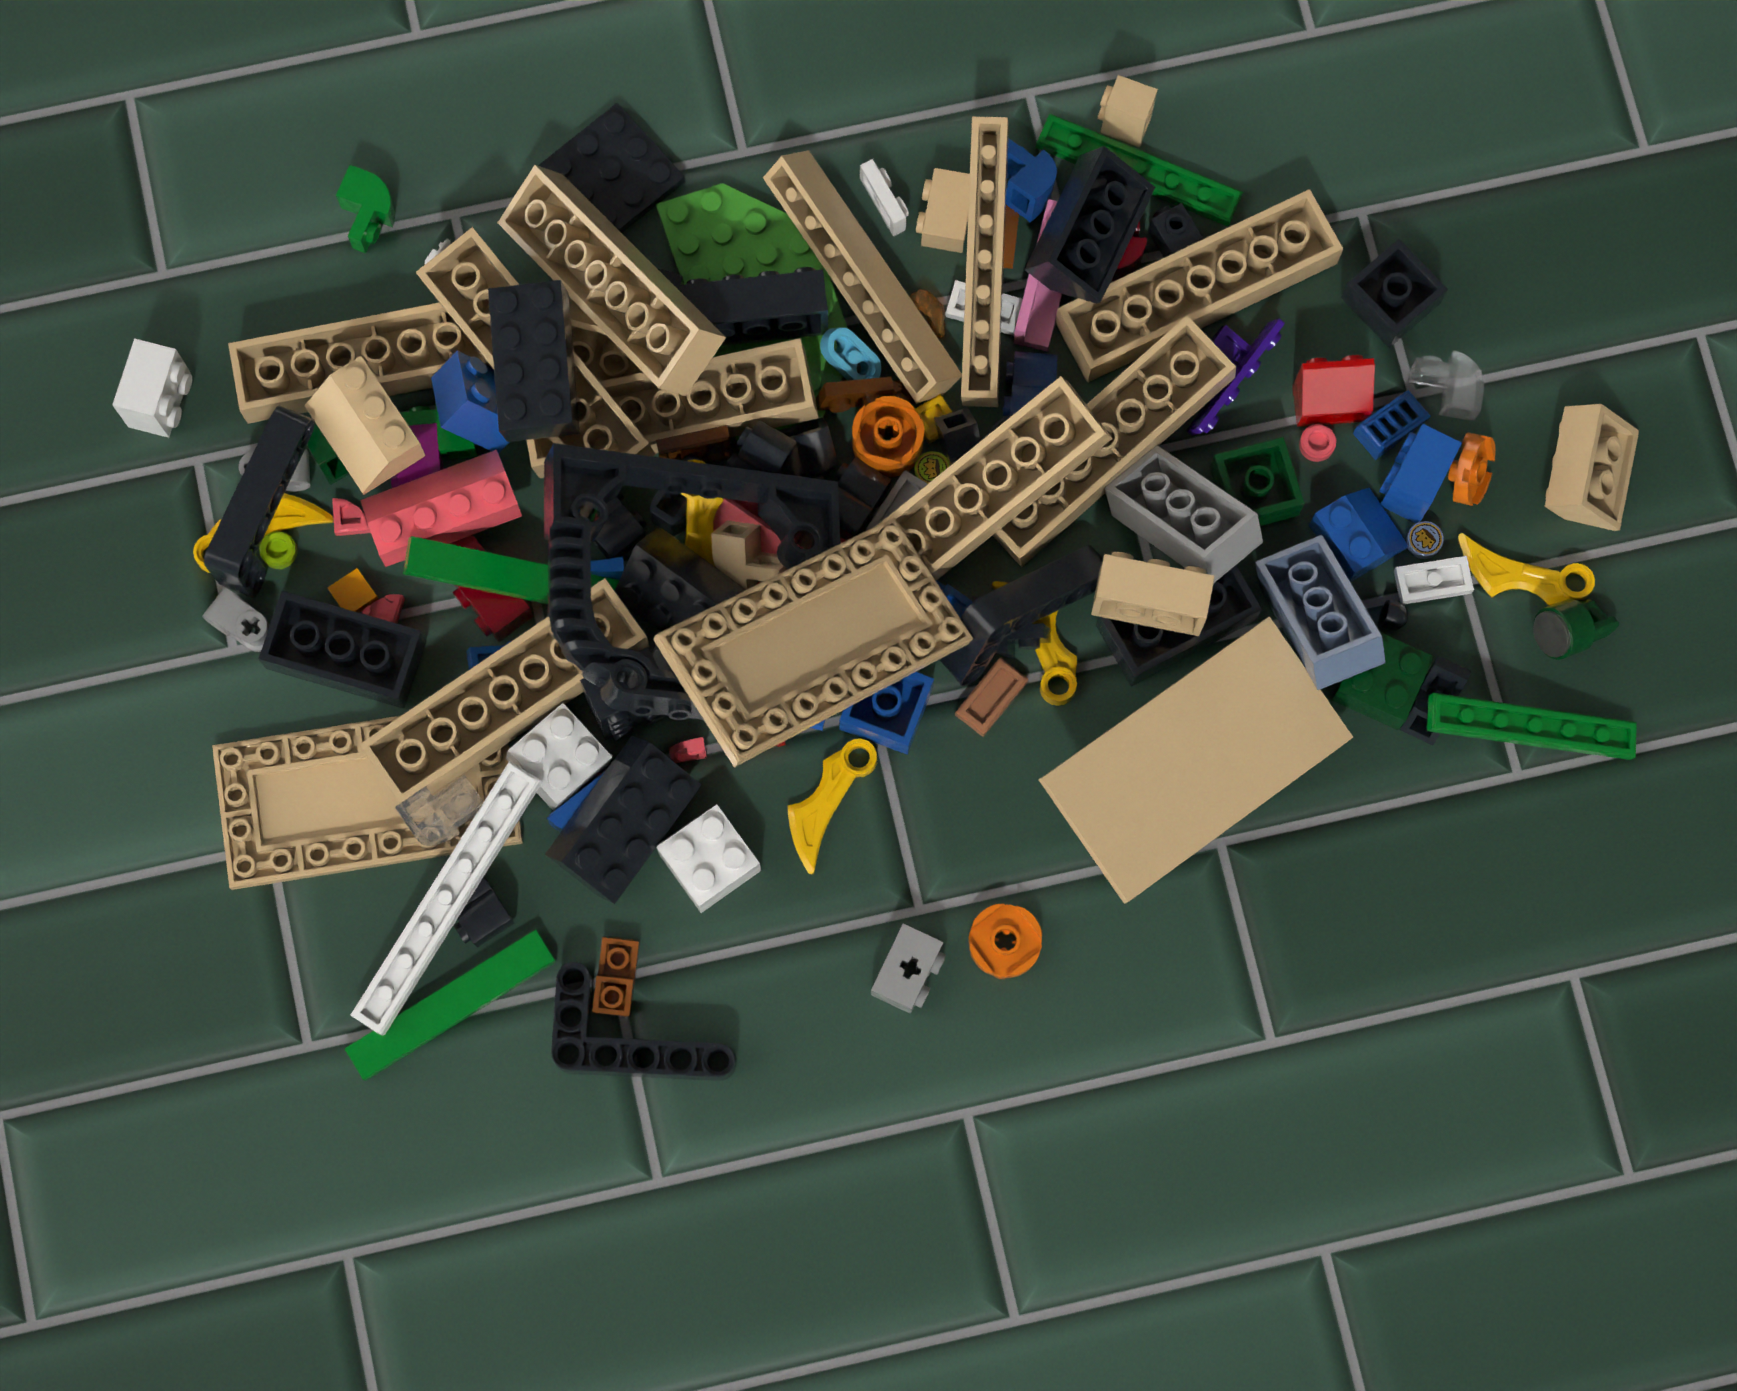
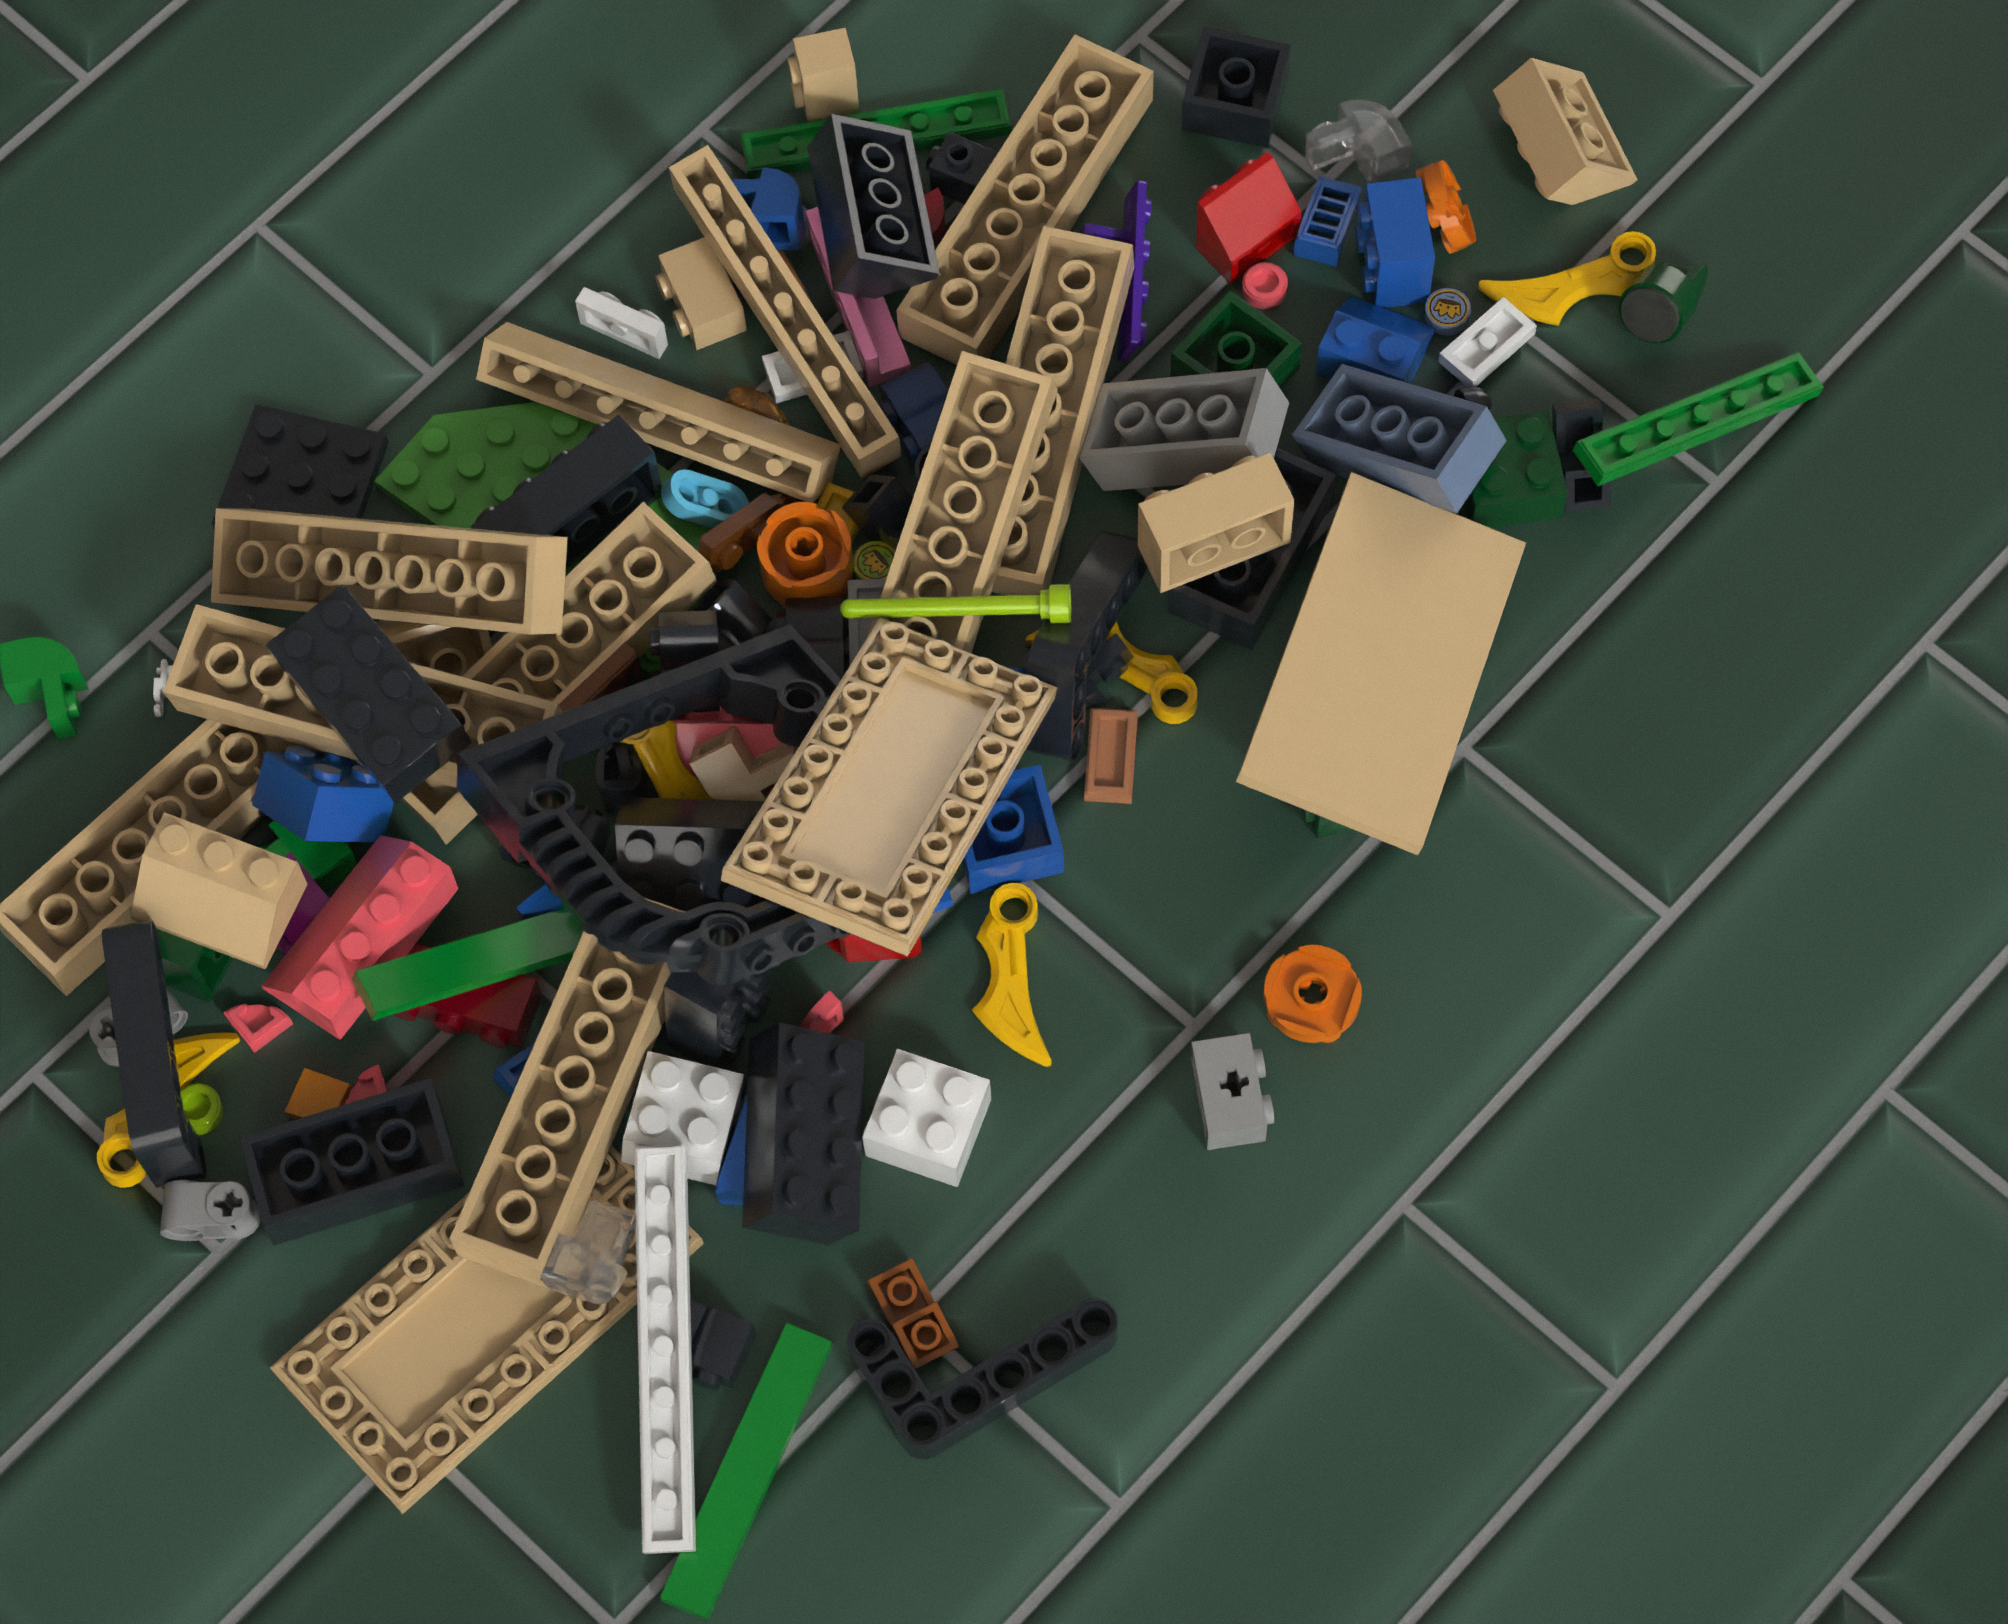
camera: 30 degrees left, 10 degrees down
(1006, 582) = (1050, 604): none -> lime piece

